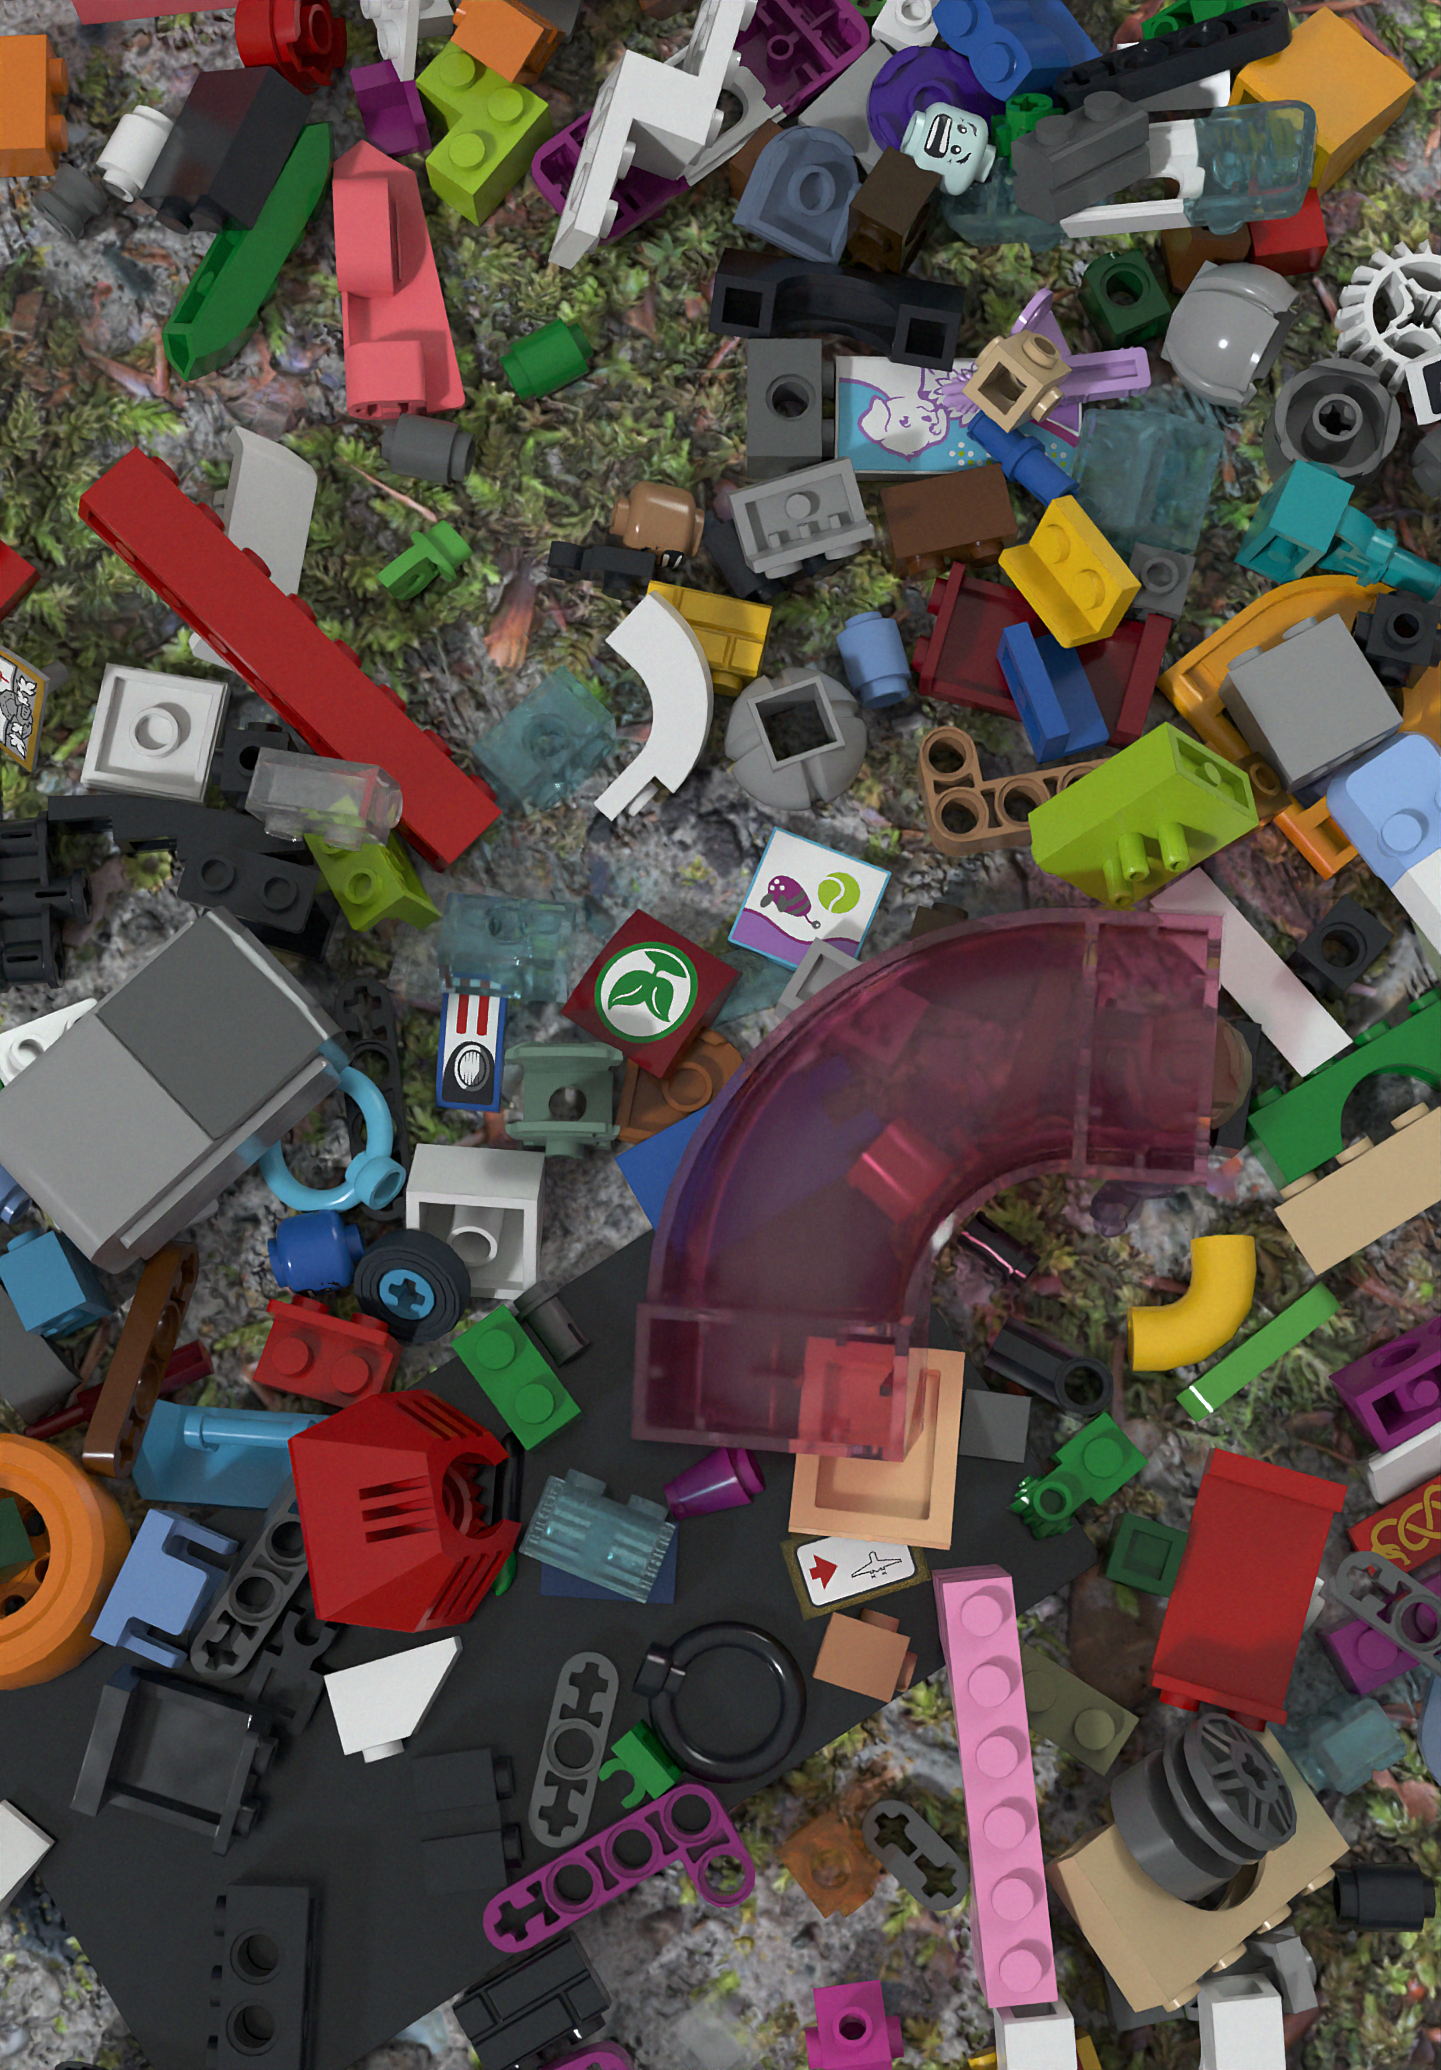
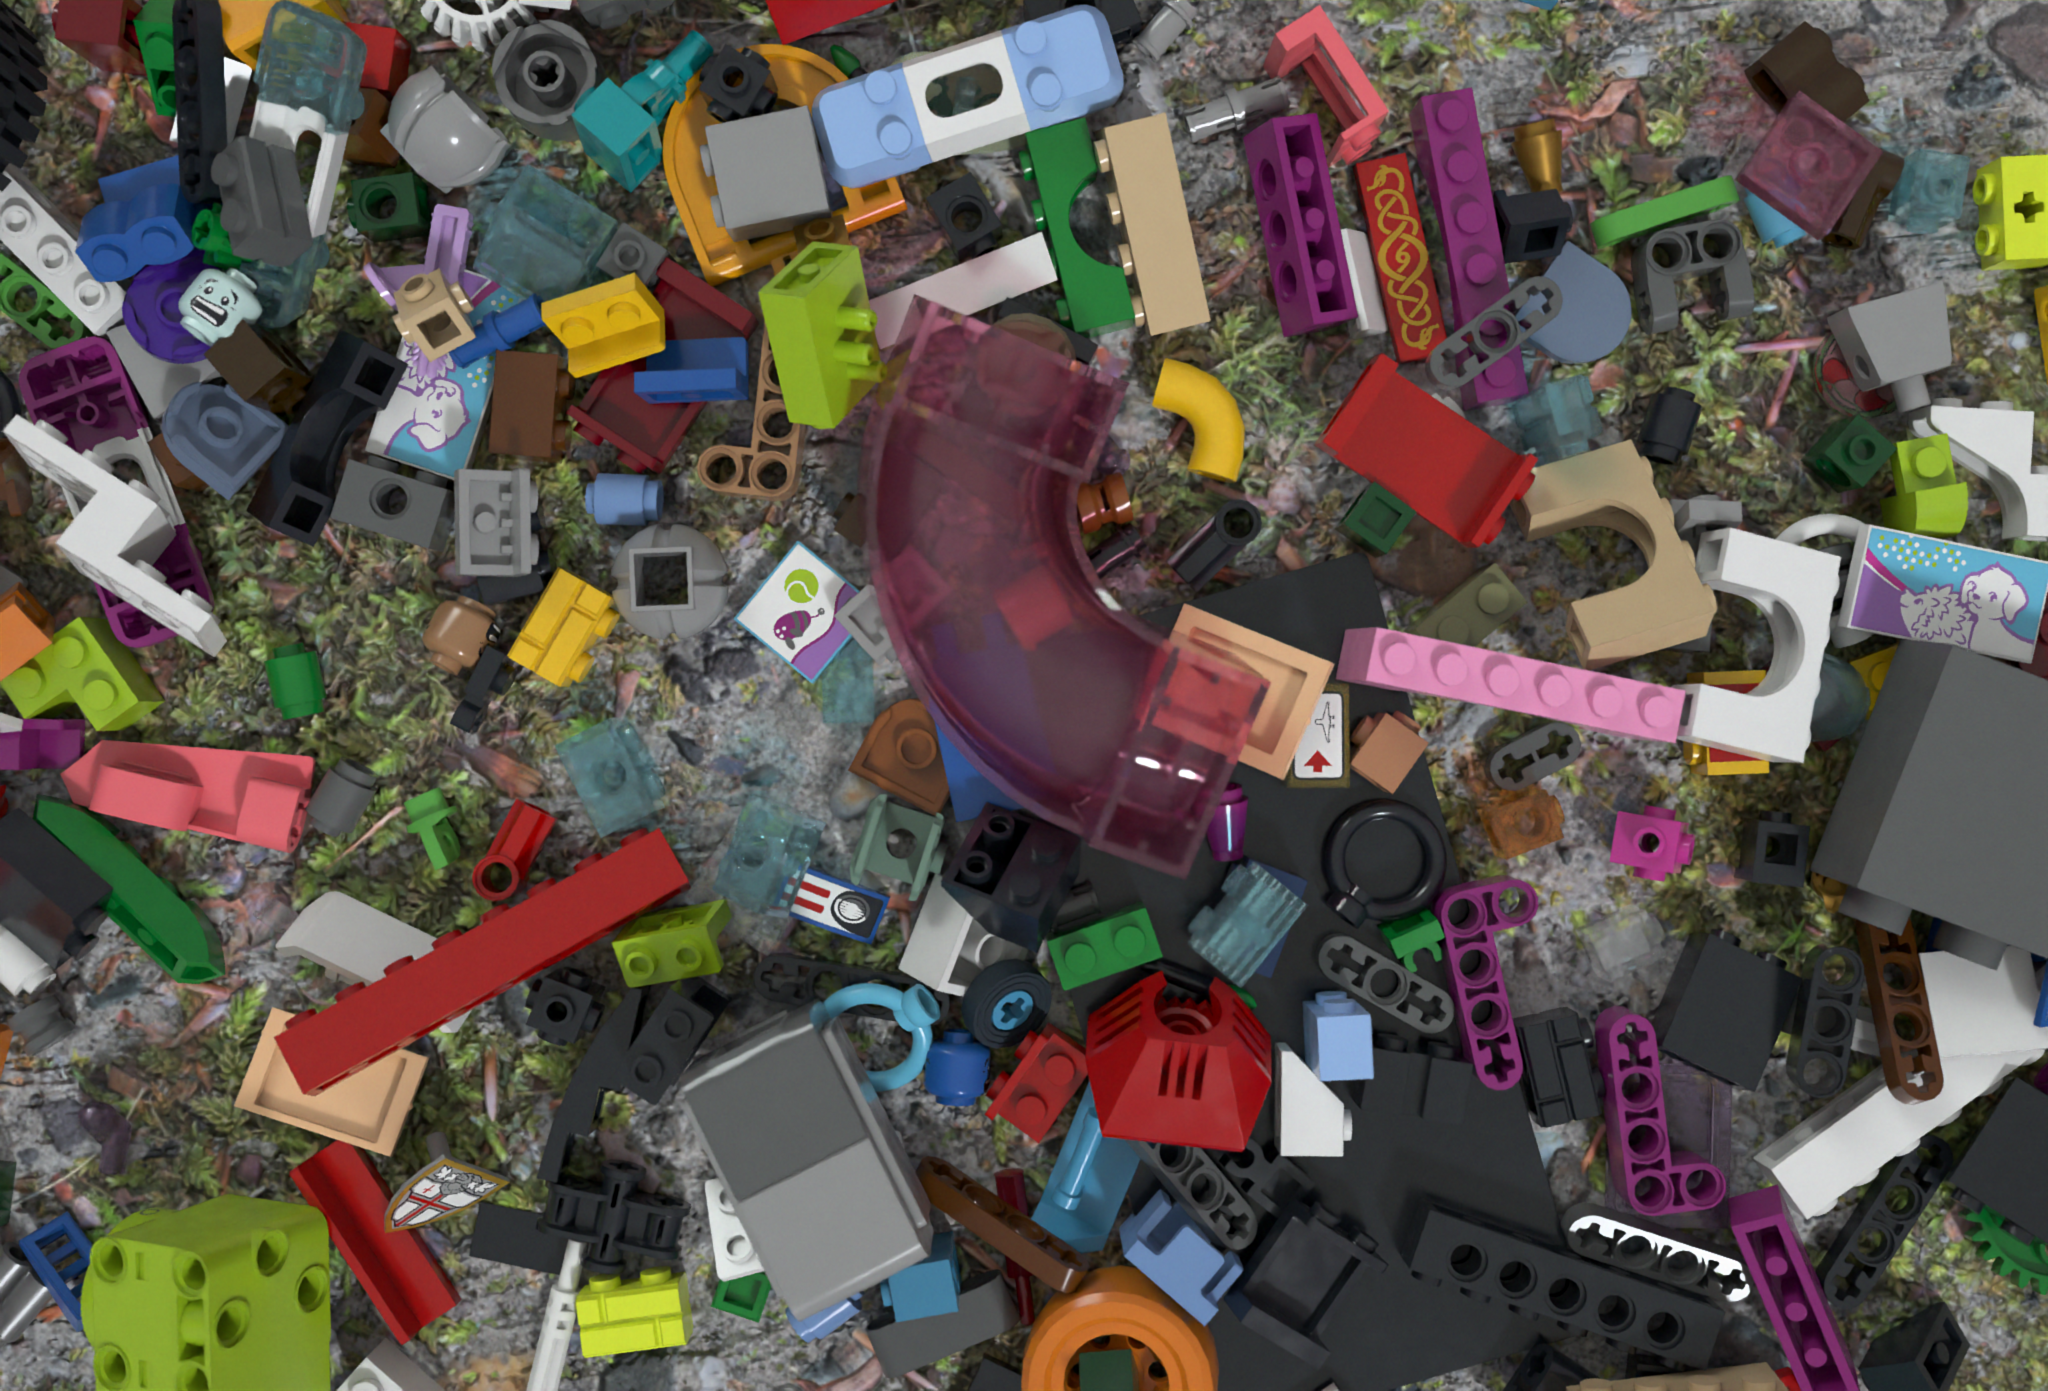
camera: 75 degrees left, 10 degrees up
(72, 572) = (359, 1111): none -> light nougat piece
(155, 734) = (509, 1077): white tile -> none
(325, 798) = (608, 966): clear brick -> none
(430, 661) = (516, 847): none -> red piece
(491, 1701) = (1337, 1037): none -> light blue brick
(572, 1241) = (1013, 875): none -> black slope
(651, 993) = (836, 755): slope -> none
(681, 690) = (601, 659): white arch -> none
(994, 1426) = (1245, 599): dark grey tile -> none
(1045, 1204) = (1091, 506): none -> dark orange wheel
(1085, 1470) = (1299, 536): green brick -> none
(1203, 1807) = (1580, 538): dark grey wheel -> none
(1258, 1351) = (1250, 382): bright green beam -> none

